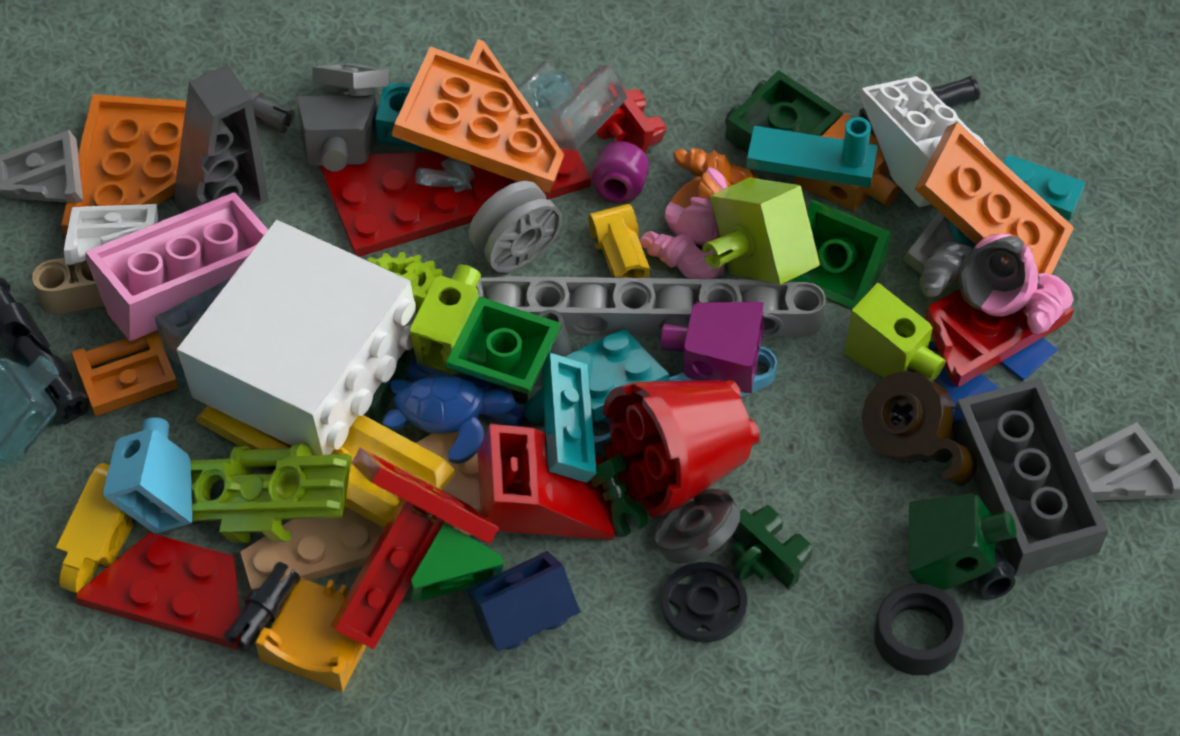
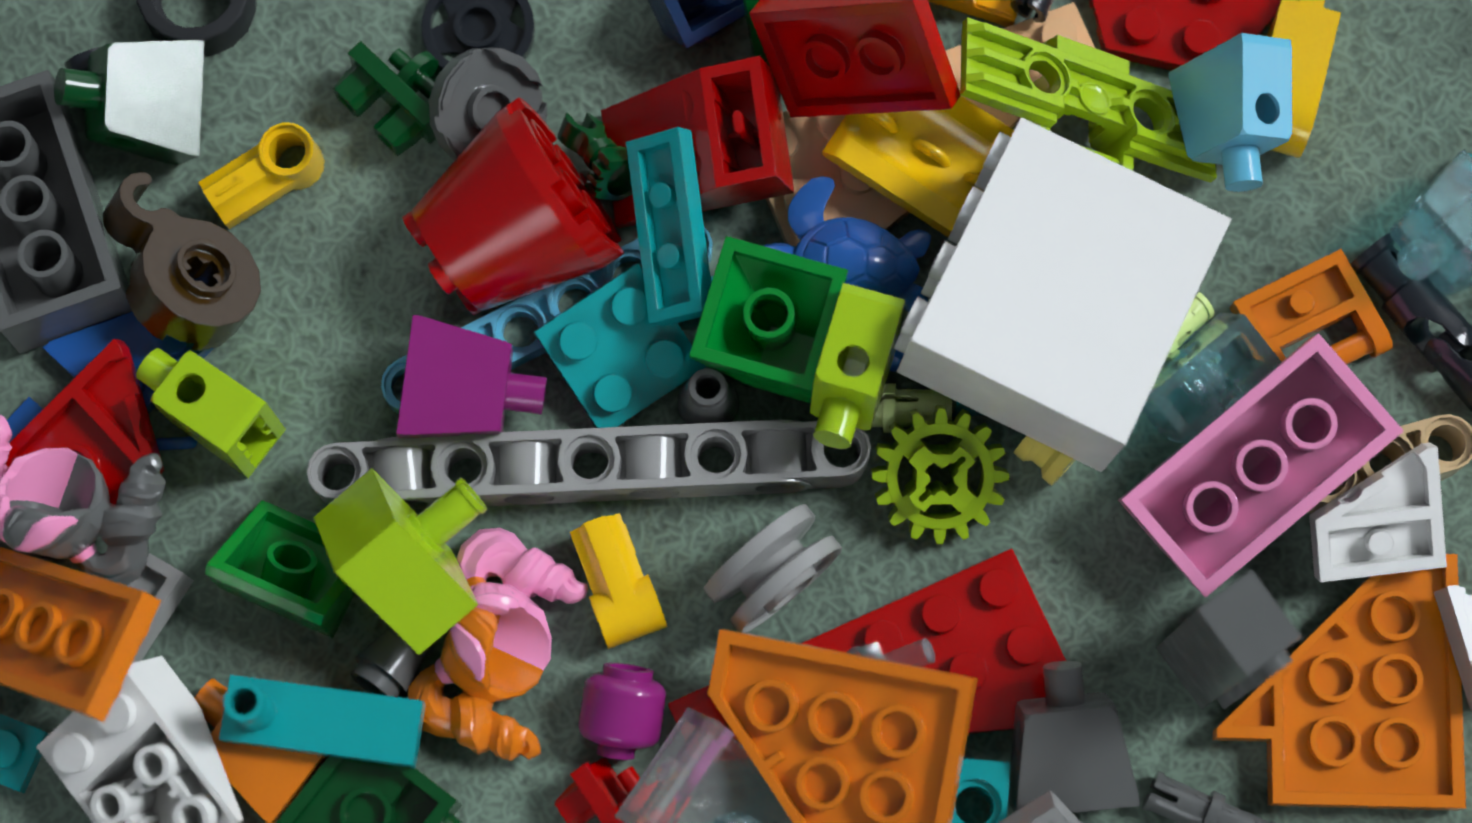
camera: 175 degrees right, 20 degrees up
(862, 500) = (256, 178): none -> yellow piece

